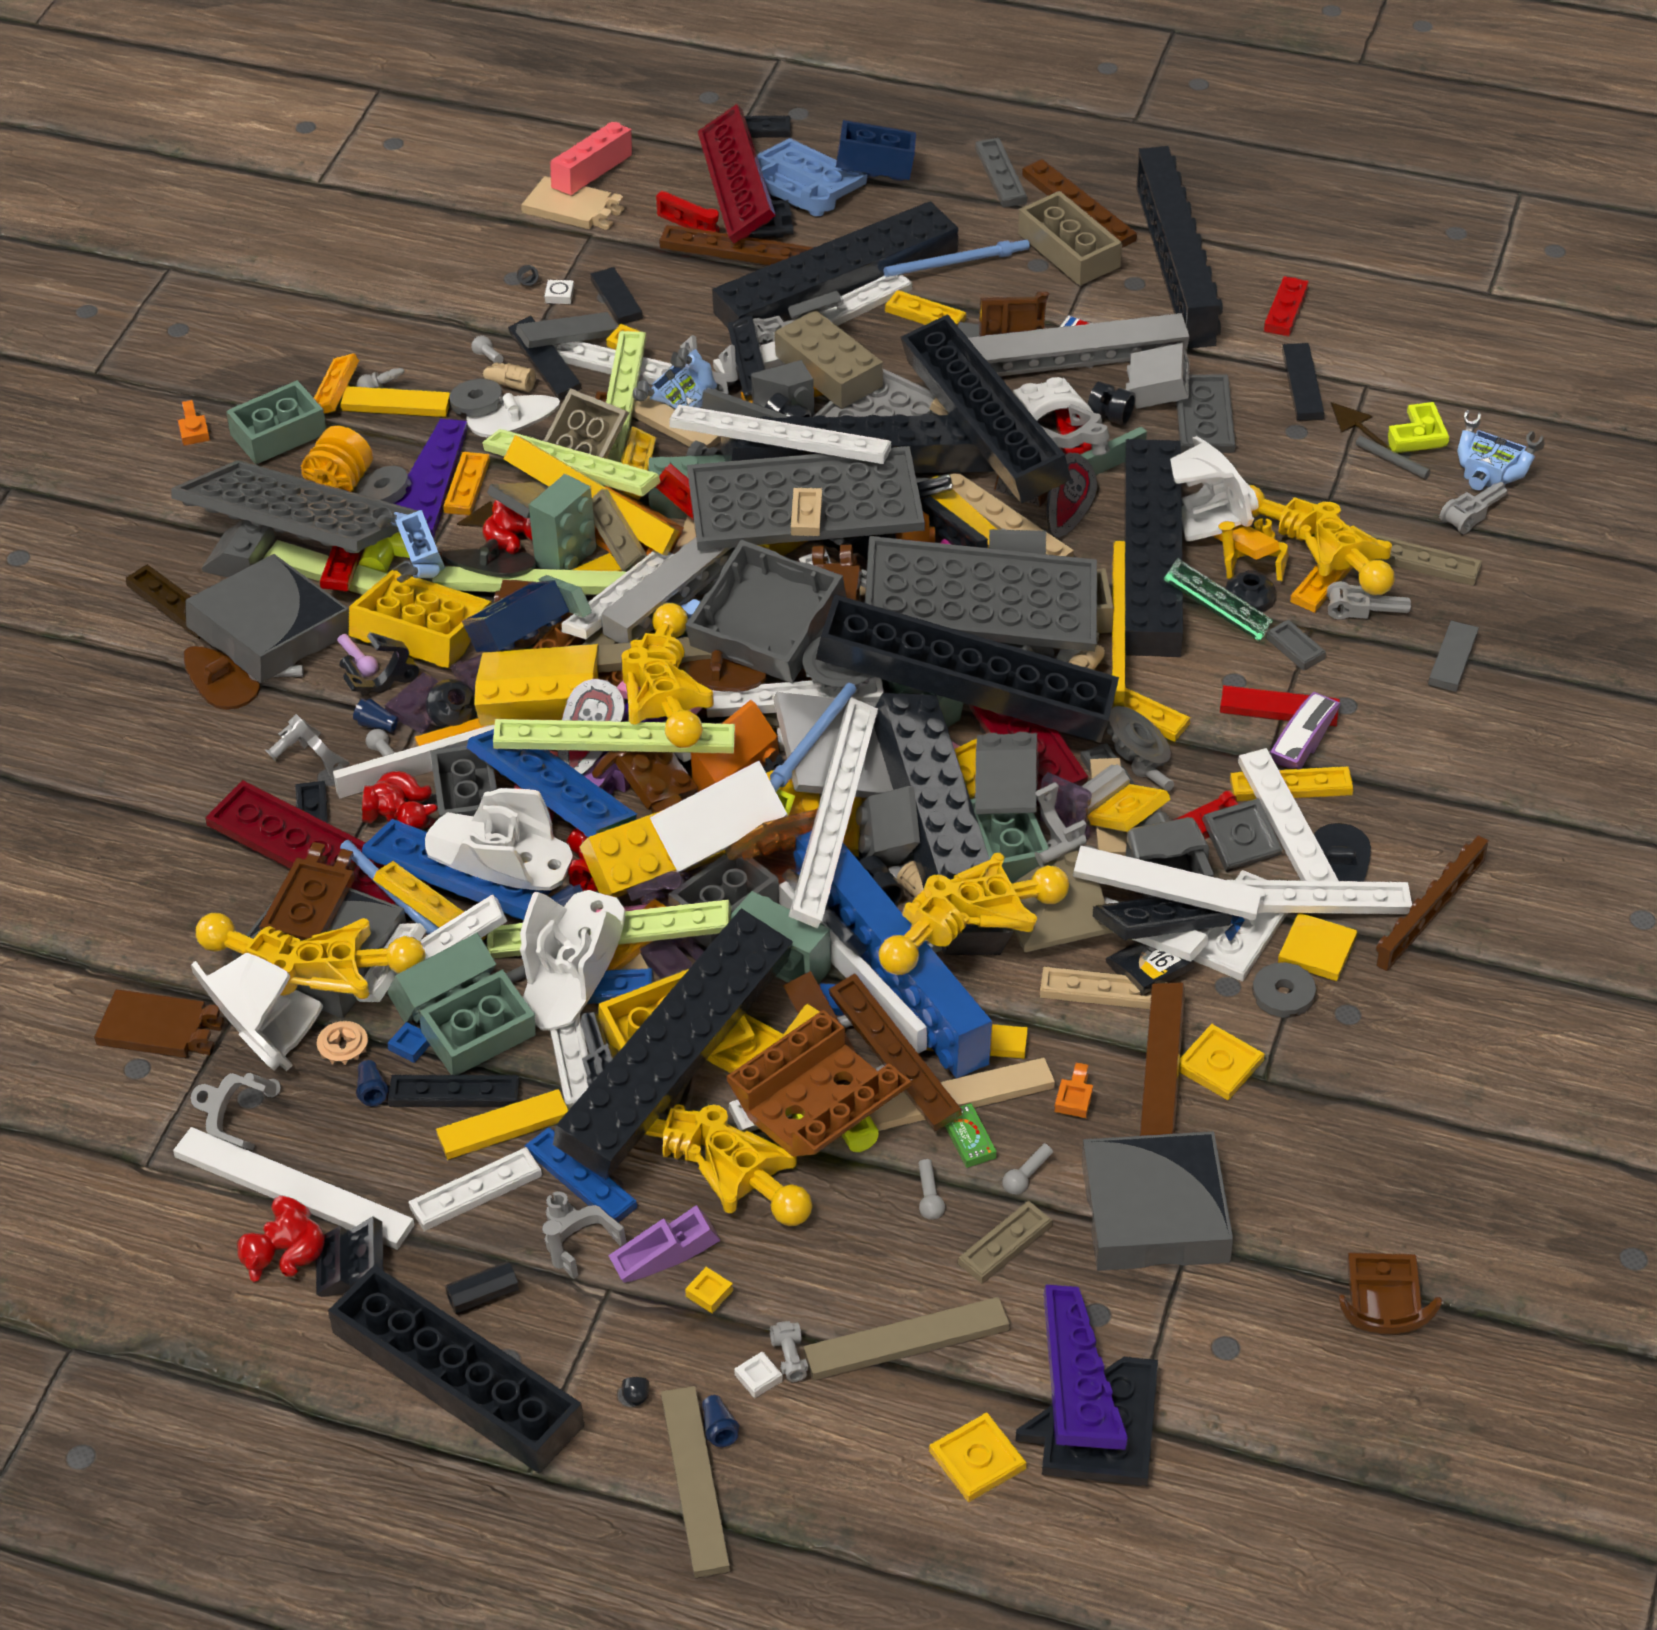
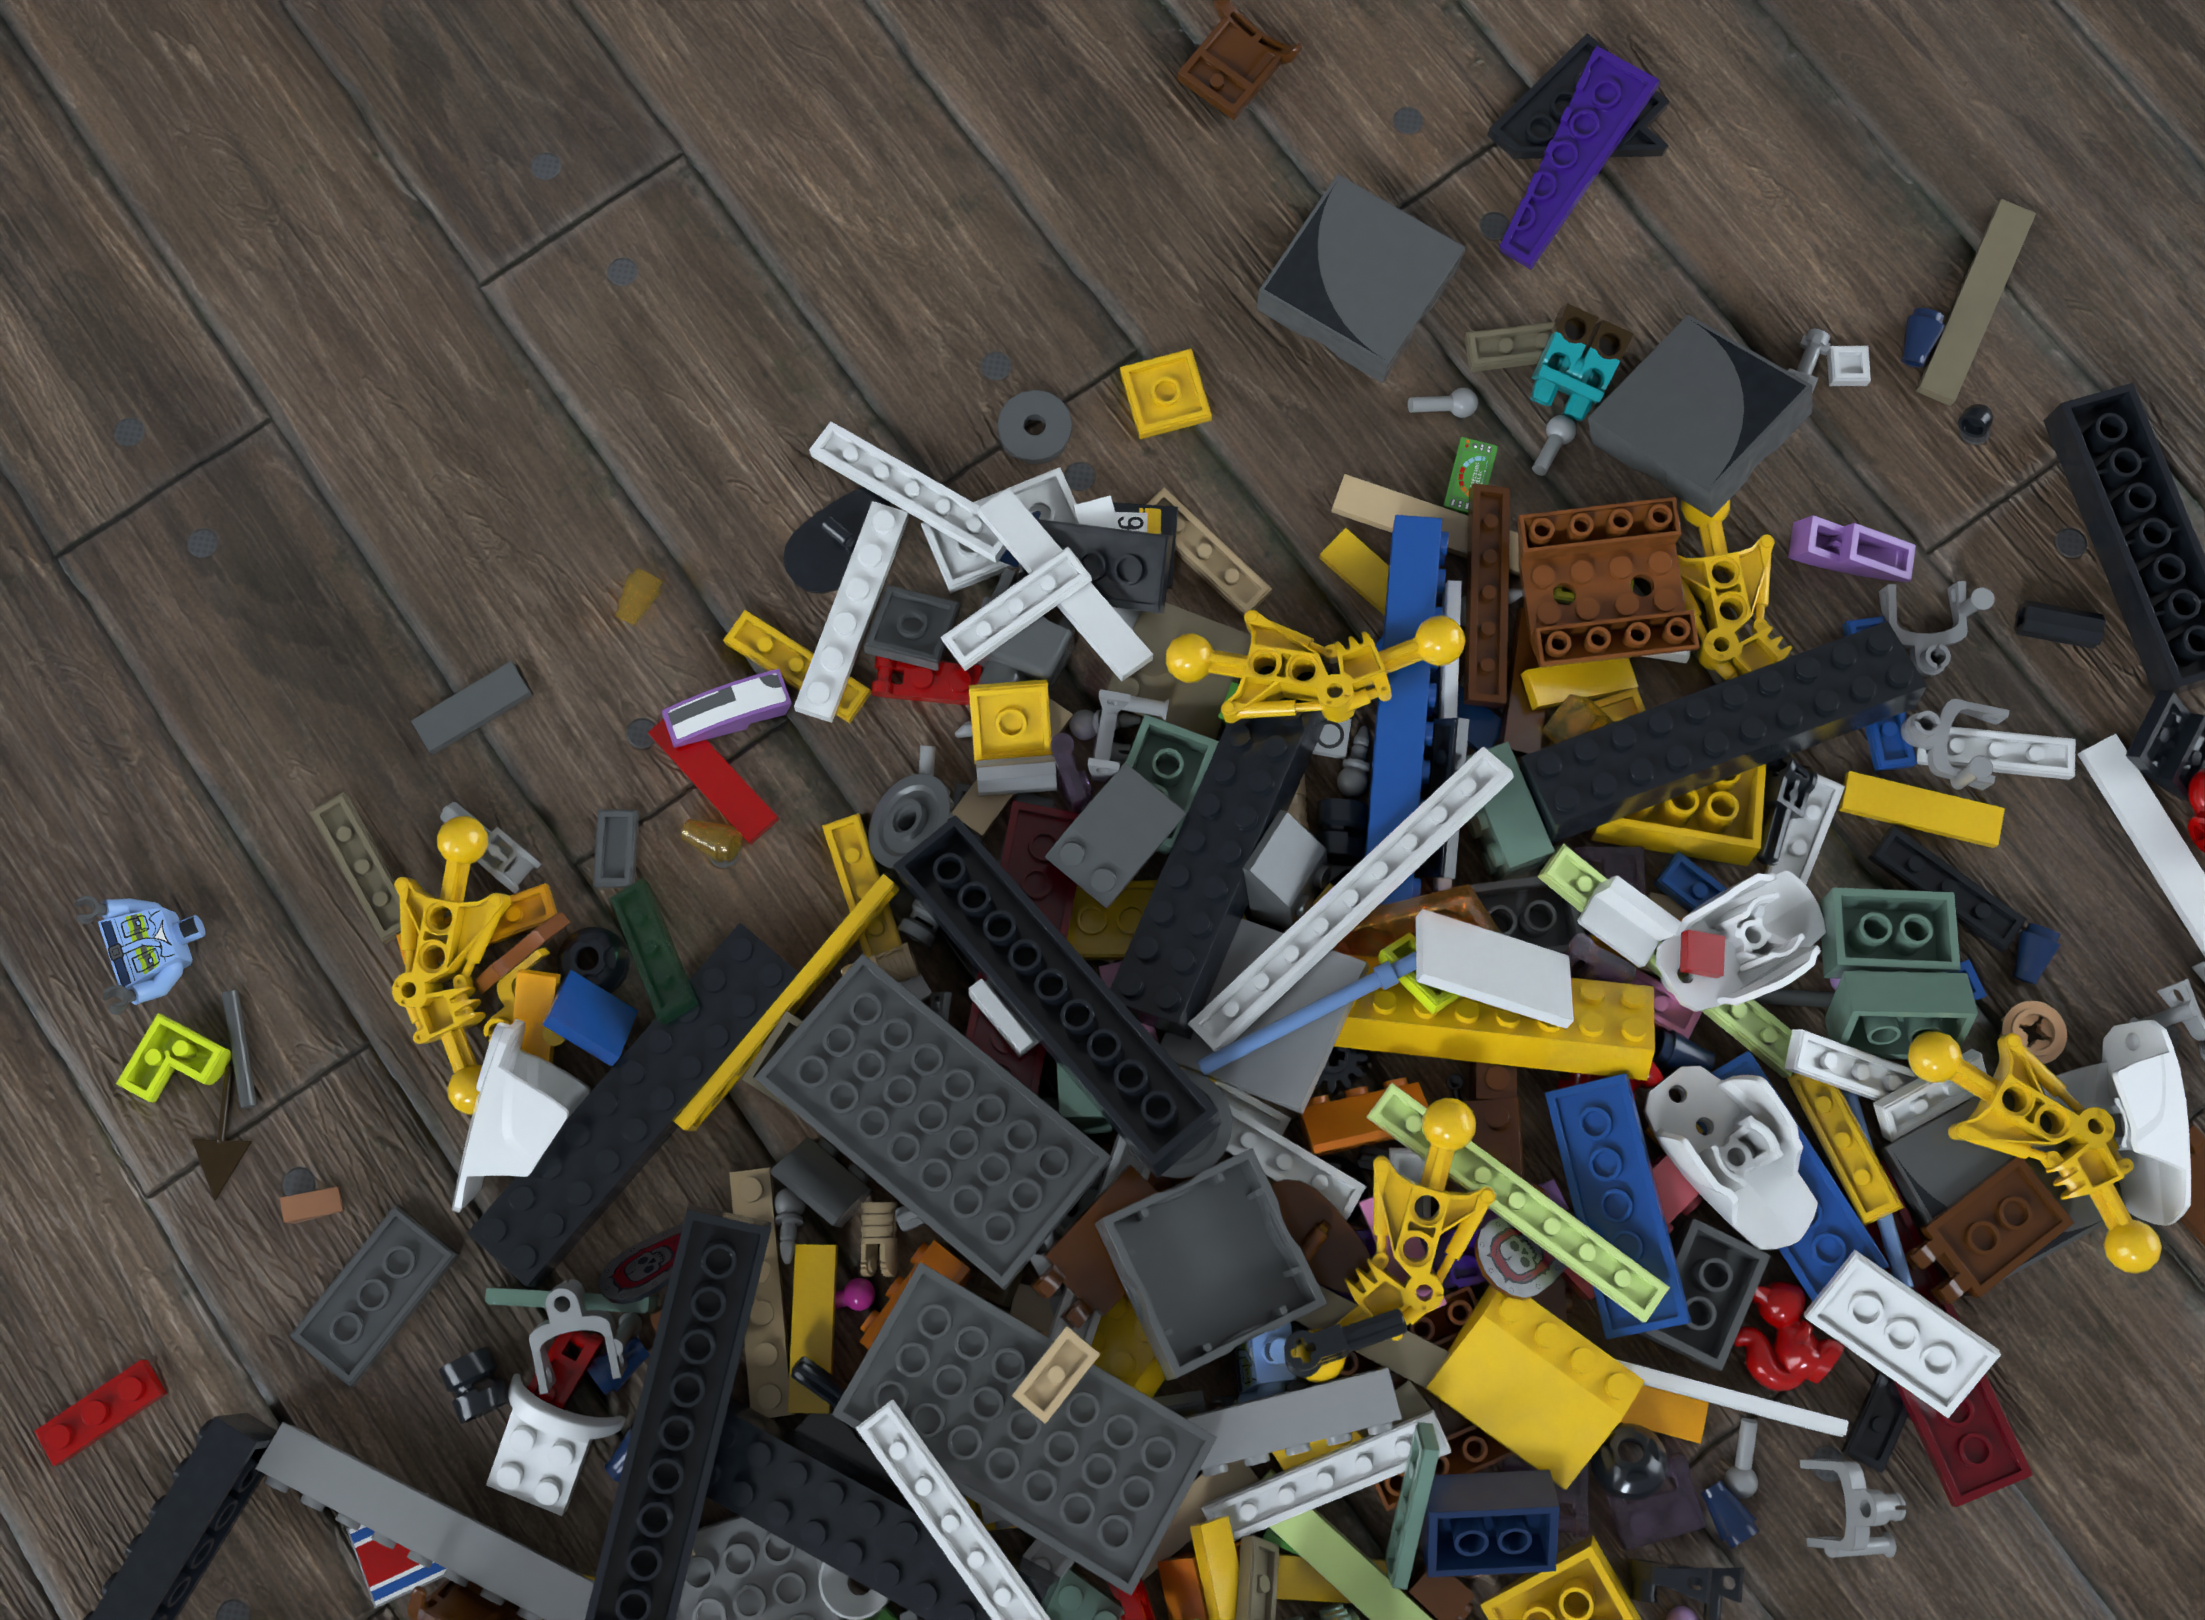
camera: 140 degrees left, 30 degrees up
(332, 823) = (1902, 1333): none -> white tile
(529, 1160) = (1931, 733): none -> light grey piece
(589, 914) = (1702, 954): none -> red tile
(655, 910) = (1627, 920): none -> white panel
(669, 604) = (1337, 1341): none -> black connector
(709, 1290) = (1841, 474): yellow plate -> none
(771, 1014) = (1575, 718): none -> clear yellow brick
(840, 1239) = (1700, 414): none -> dark grey tile
(906, 1338) = (1672, 303): dark tan tile -> none
(951, 526) = (850, 1290): black tile -> none
(955, 1225) = (1577, 374): none -> teal hips
(977, 1457) = (1708, 161): yellow tile -> none
(1074, 1094) = (1337, 445): orange plate -> none
(1159, 375) = (381, 1382): light grey brick -> none
(1163, 1059) = (1228, 417): reddish brown tile -> none
(1180, 843) = (1016, 608): none -> white tile
(1218, 549) = (590, 1018): none -> blue tile
(1245, 674) = (713, 839): none -> clear yellow cone
(1279, 422) = (311, 1205): none -> nougat piece
(1290, 564) = (521, 951): none -> dark orange tile
(1302, 381) = (212, 1258): black tile -> none
(1318, 946) = (958, 450): yellow tile -> none
(1423, 757) = (638, 595): none -> clear yellow cone
(1434, 900) = (792, 417): reddish brown plate -> none
(1470, 510) = (243, 896): light grey connector -> none

